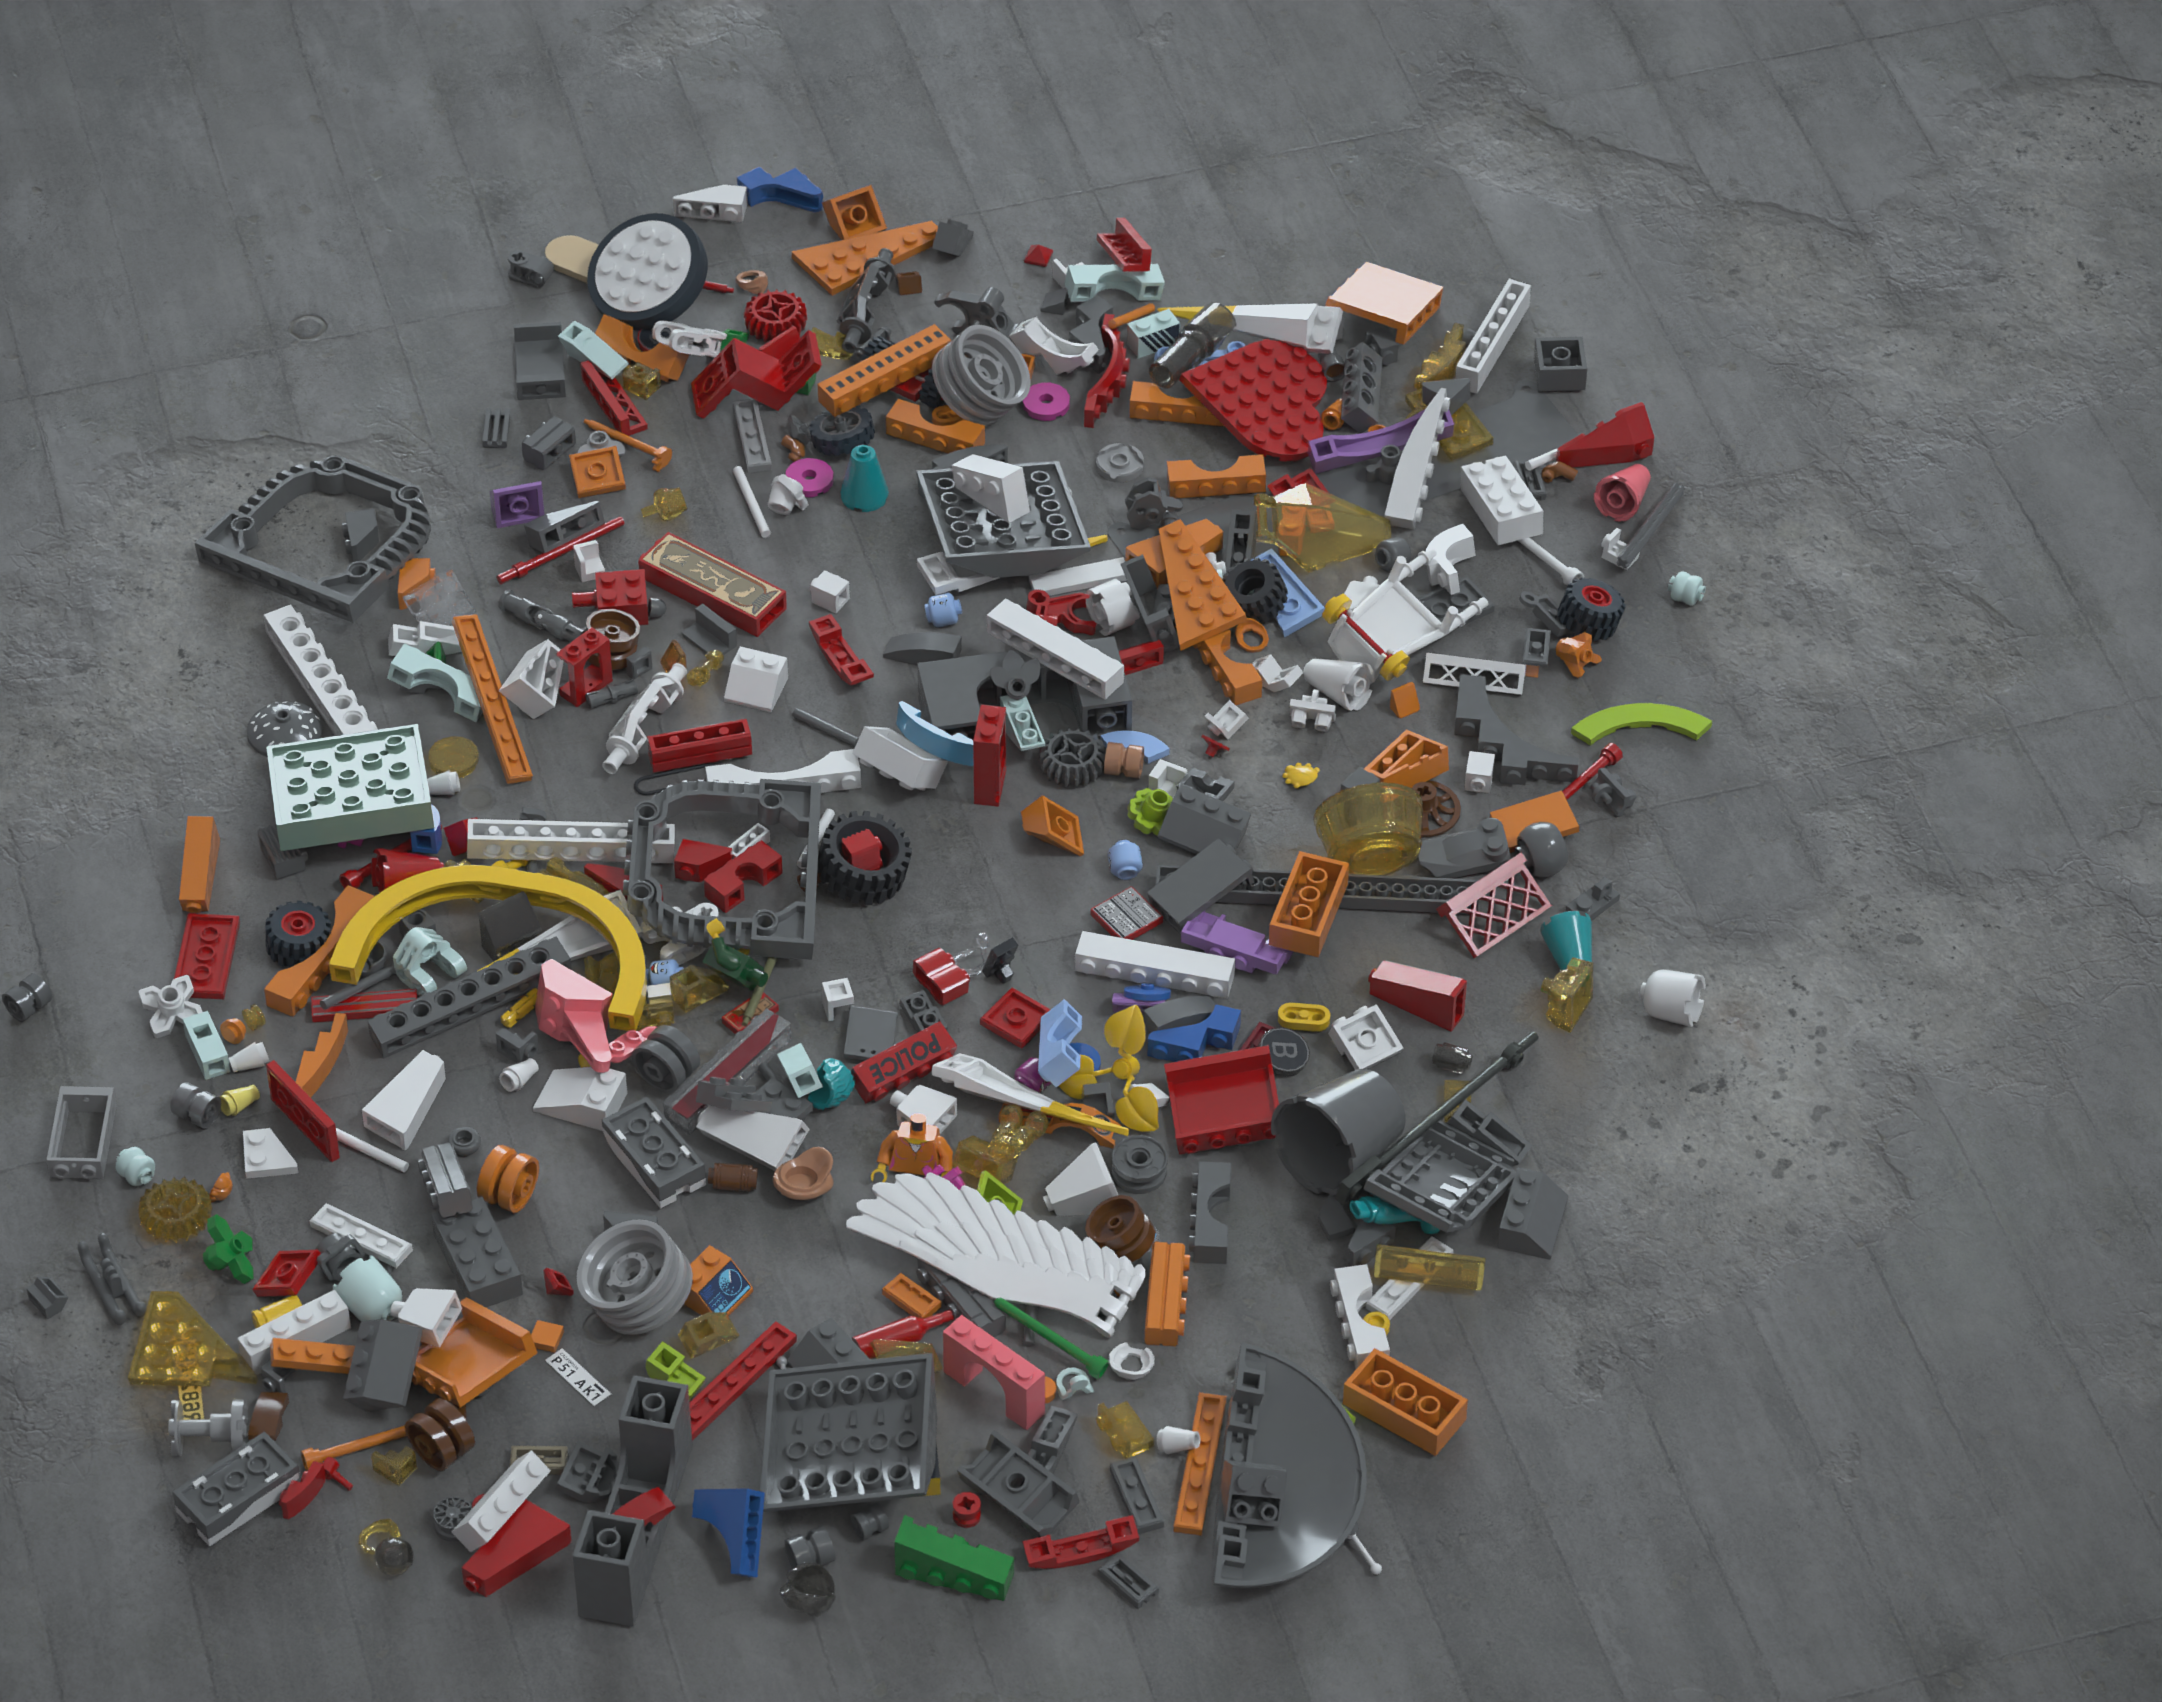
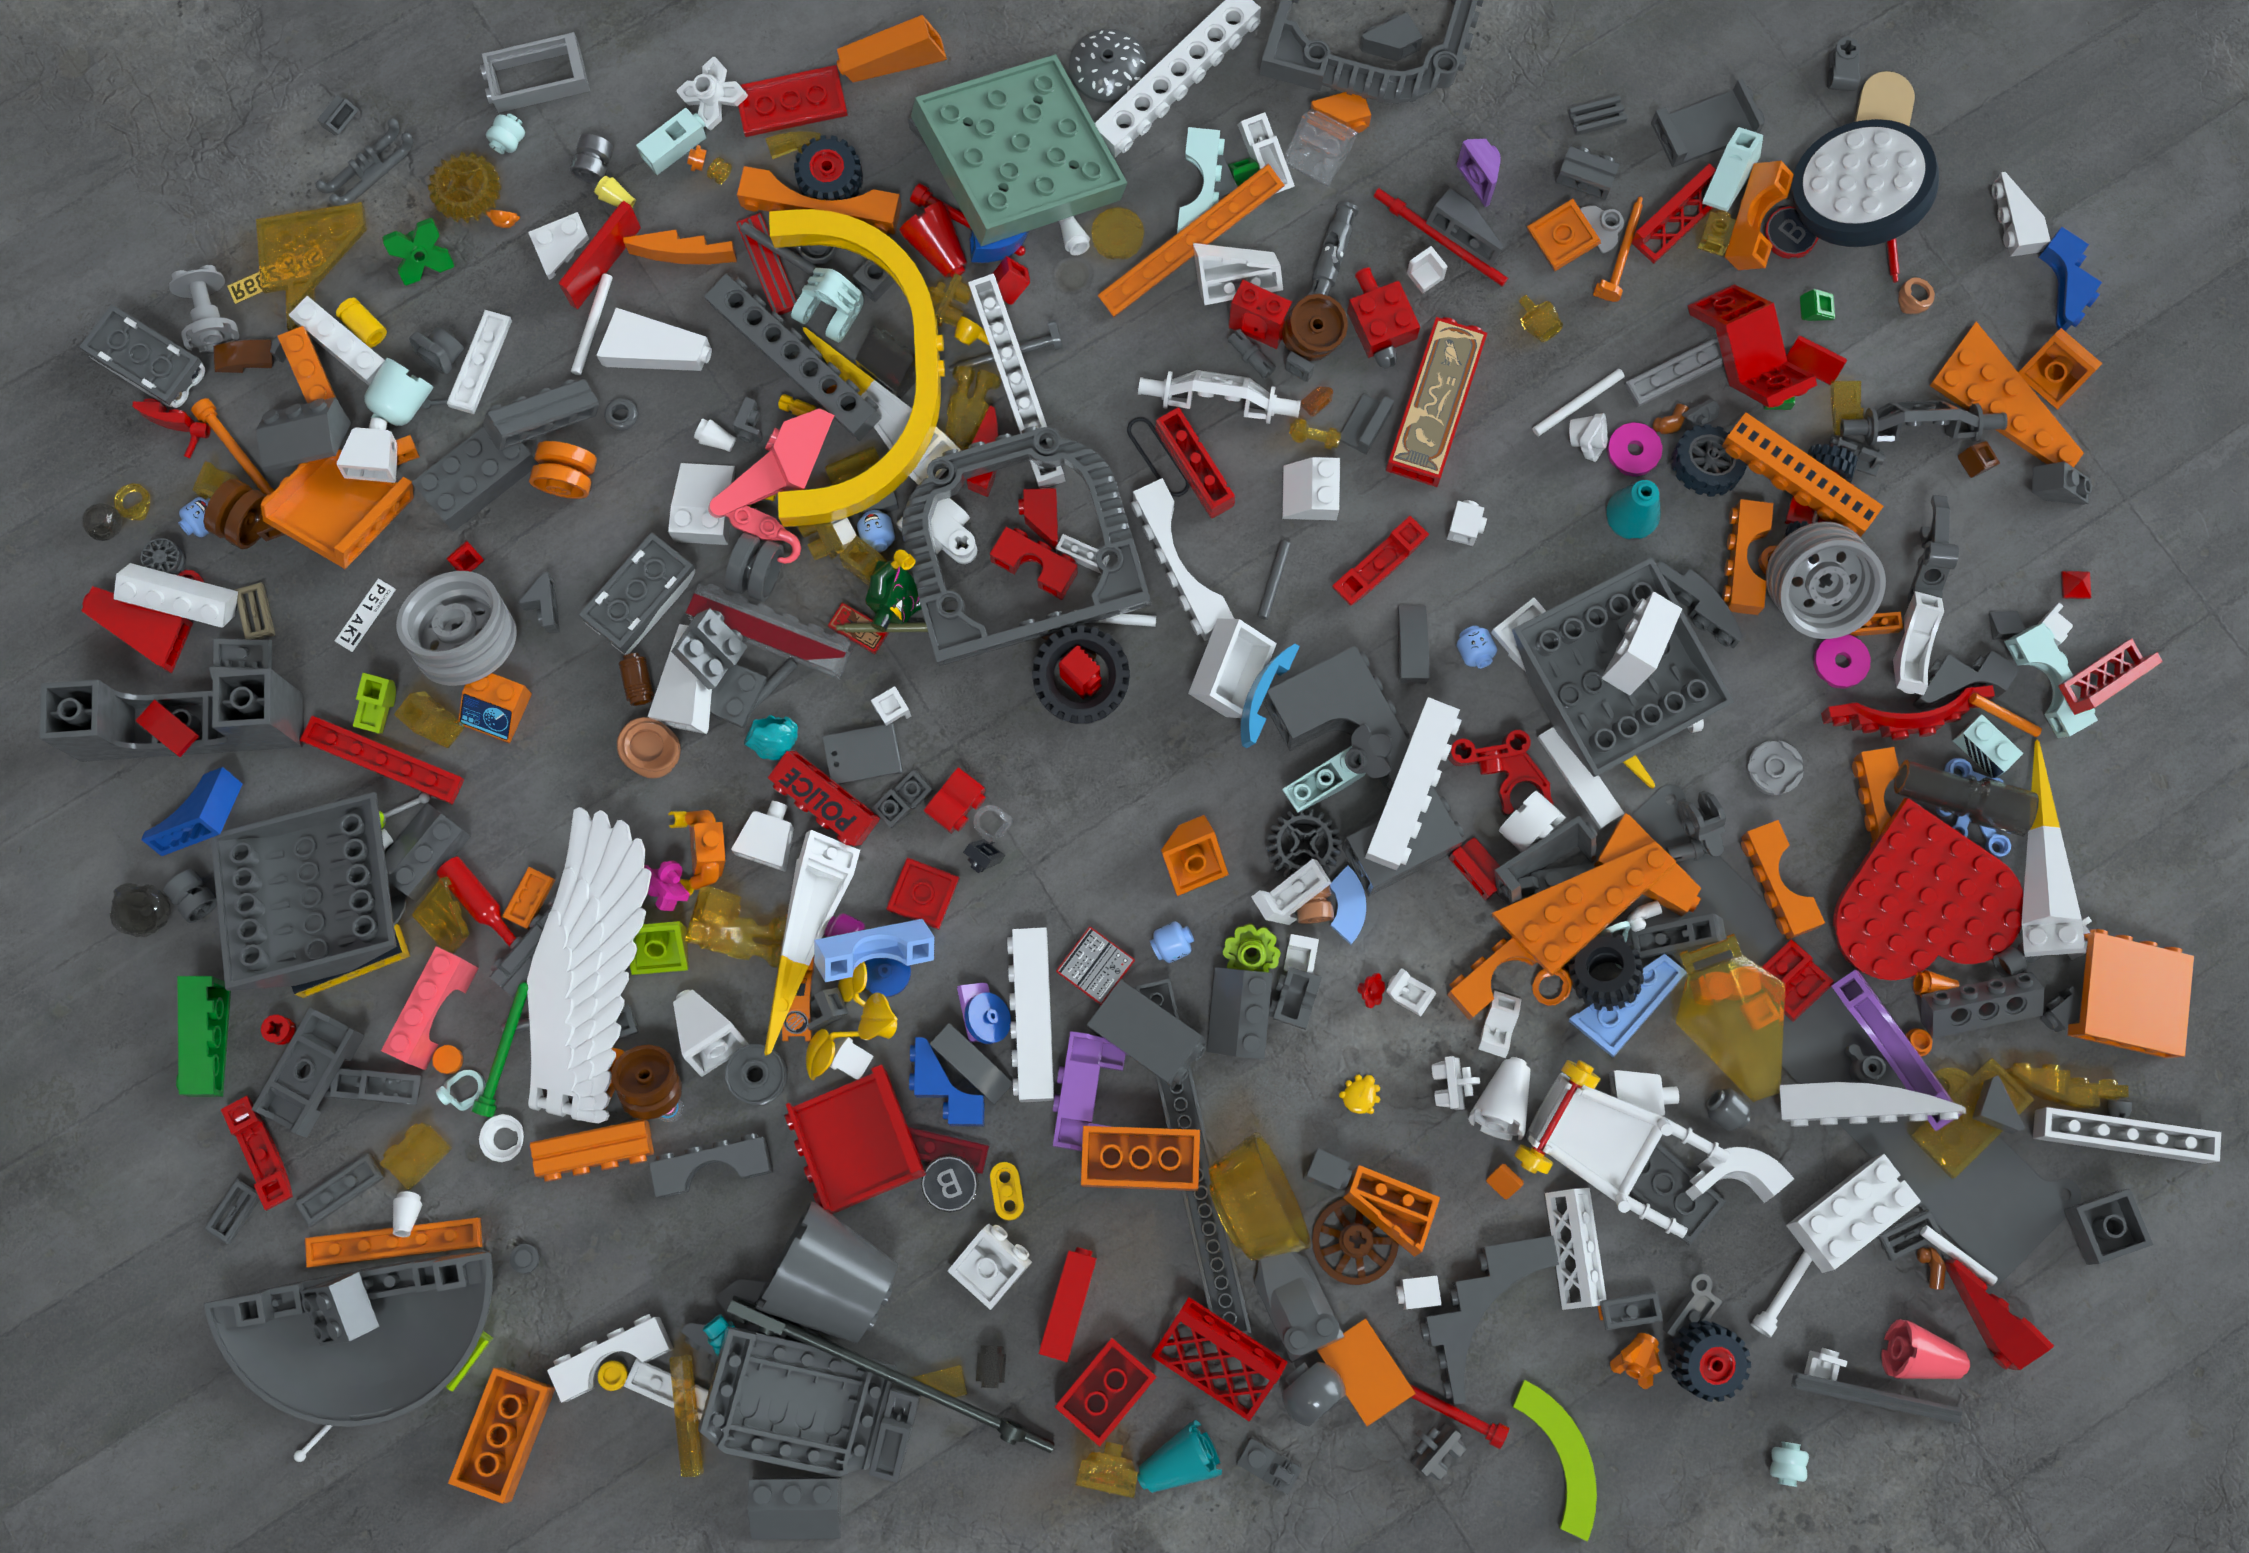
camera: 75 degrees right, 30 degrees up
(249, 1058) = (670, 187): white cone -> none
(255, 956) = (788, 142): none -> clear yellow slope
(287, 1273) = (409, 312): red plate -> none
(423, 1478) = (193, 516): none -> light blue head
(547, 1335) = (401, 570): orange tile -> none
(690, 339) = (1782, 261): white piece -> none
(774, 313) = (1863, 322): red gear -> none
(799, 1070) = (774, 700): light aqua brick -> none
(989, 755) = (1248, 759): red door -> none
(1115, 758) = (1292, 893): none -> white bracket
(1499, 982) = (1105, 1392): none -> red brick

